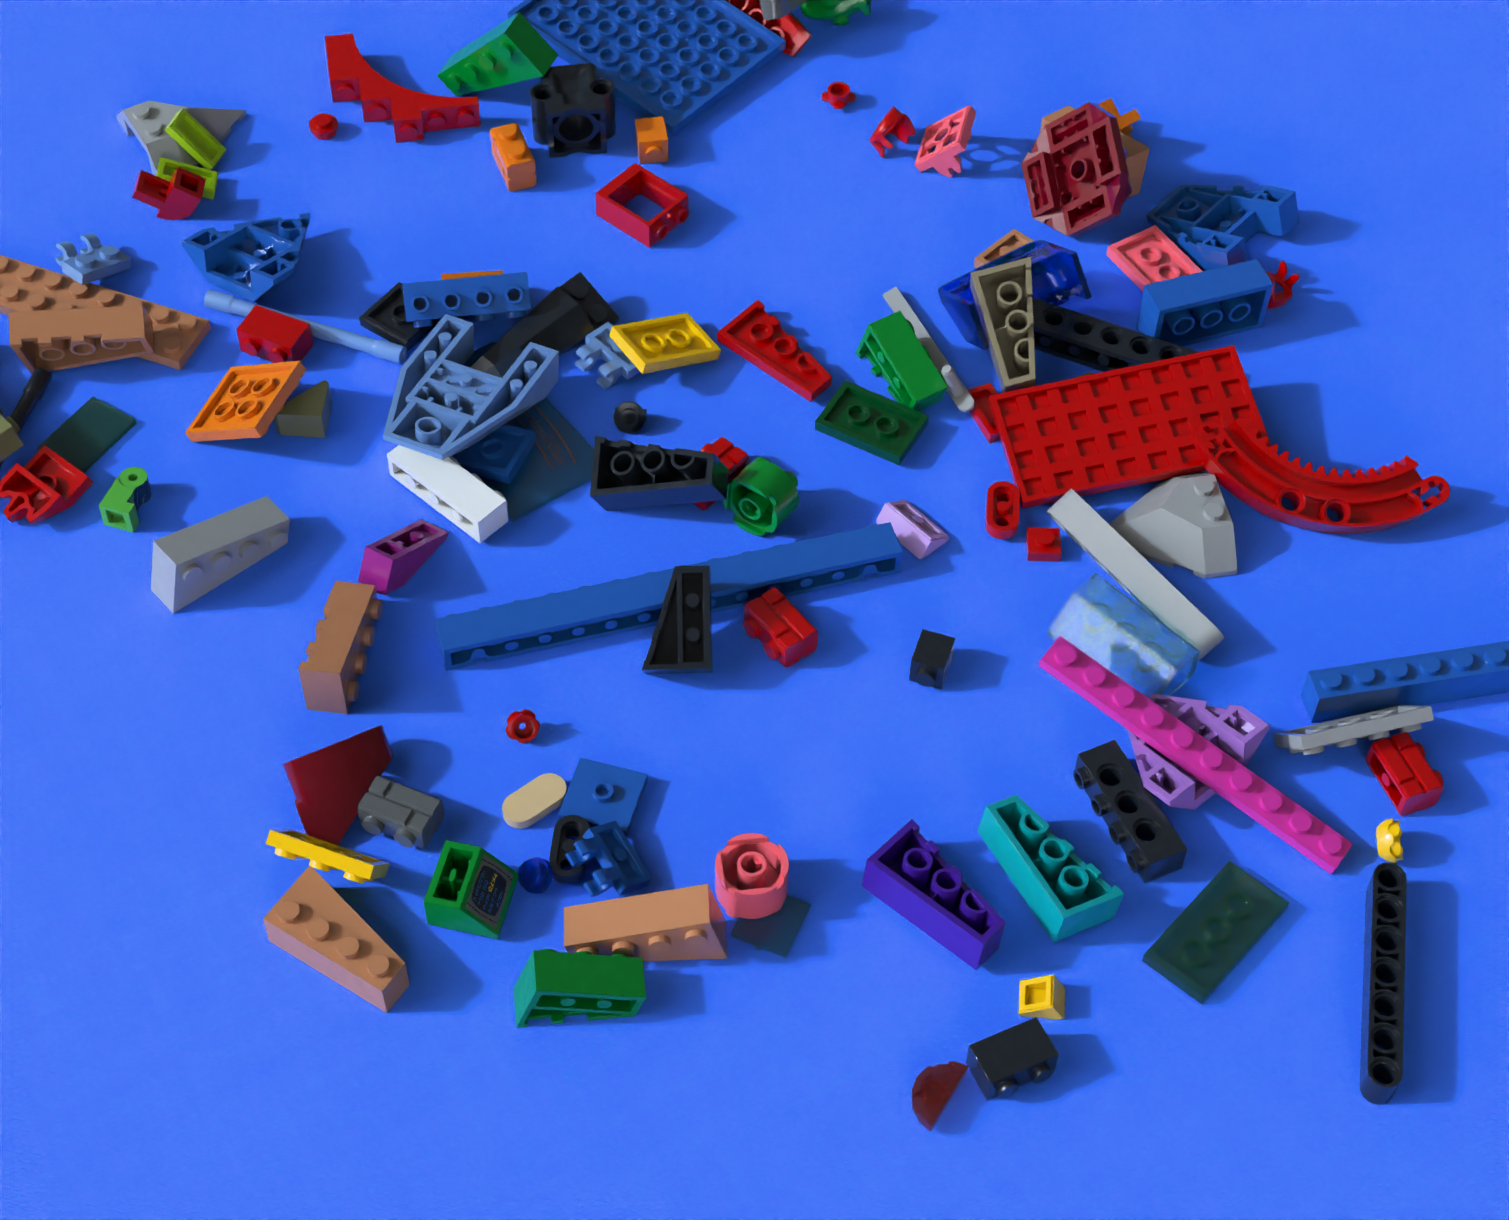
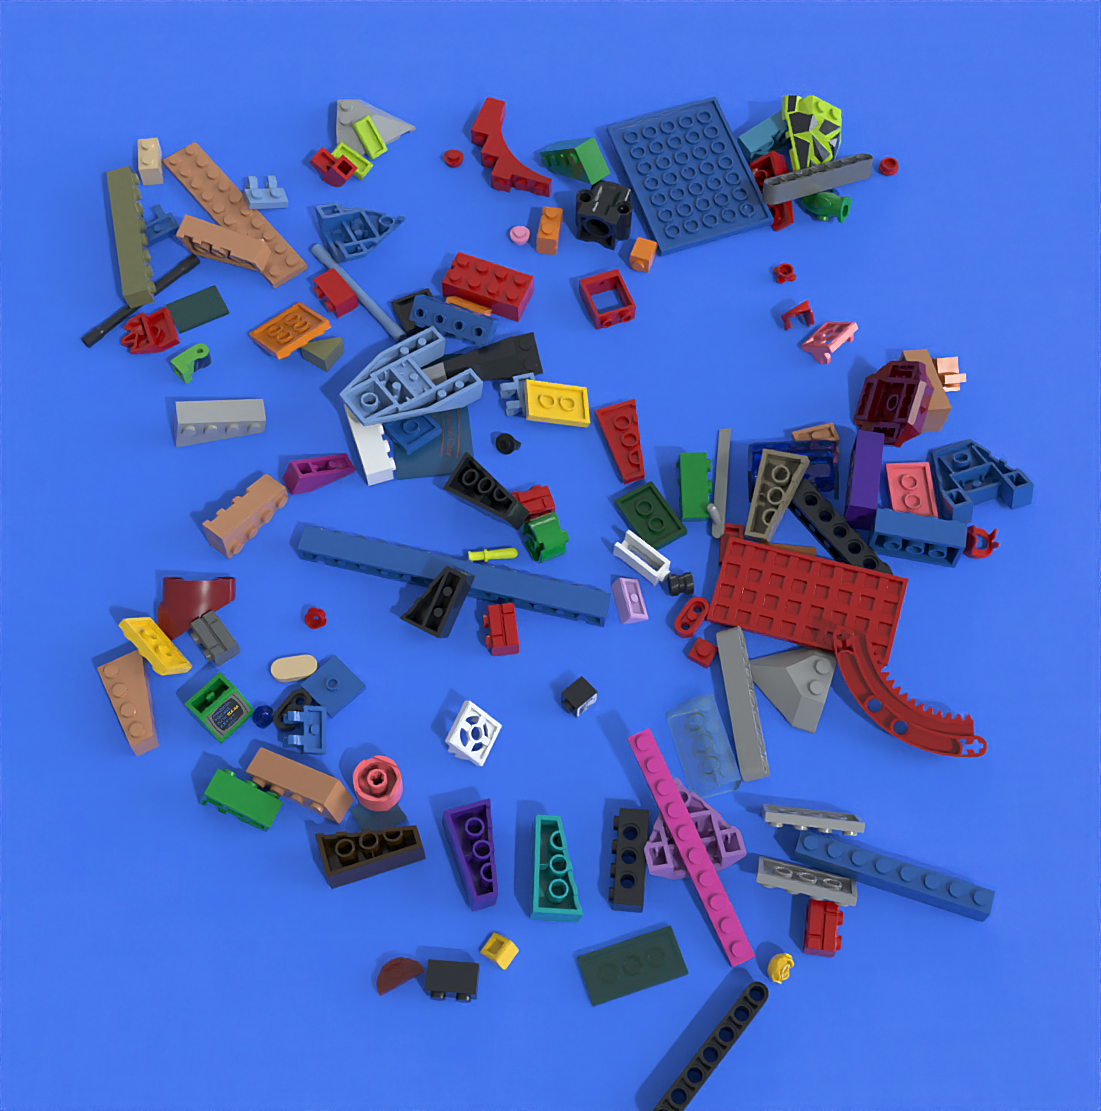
camera: 30 degrees right, 10 degrees up
(475, 179) = (519, 235): none -> bright pink plate
(478, 245) = (489, 285): none -> red piece
(711, 546) = (505, 553): none -> neon yellow piece
(795, 967) = (368, 853): none -> dark brown wedge
(817, 743) = (481, 718): none -> white piece
(896, 469) = (642, 558): none -> white window
(961, 480) = (680, 584): none -> black wheel
(1109, 274) = (863, 479): none -> dark purple brick
(1310, 658) = (805, 818): none -> light grey plate

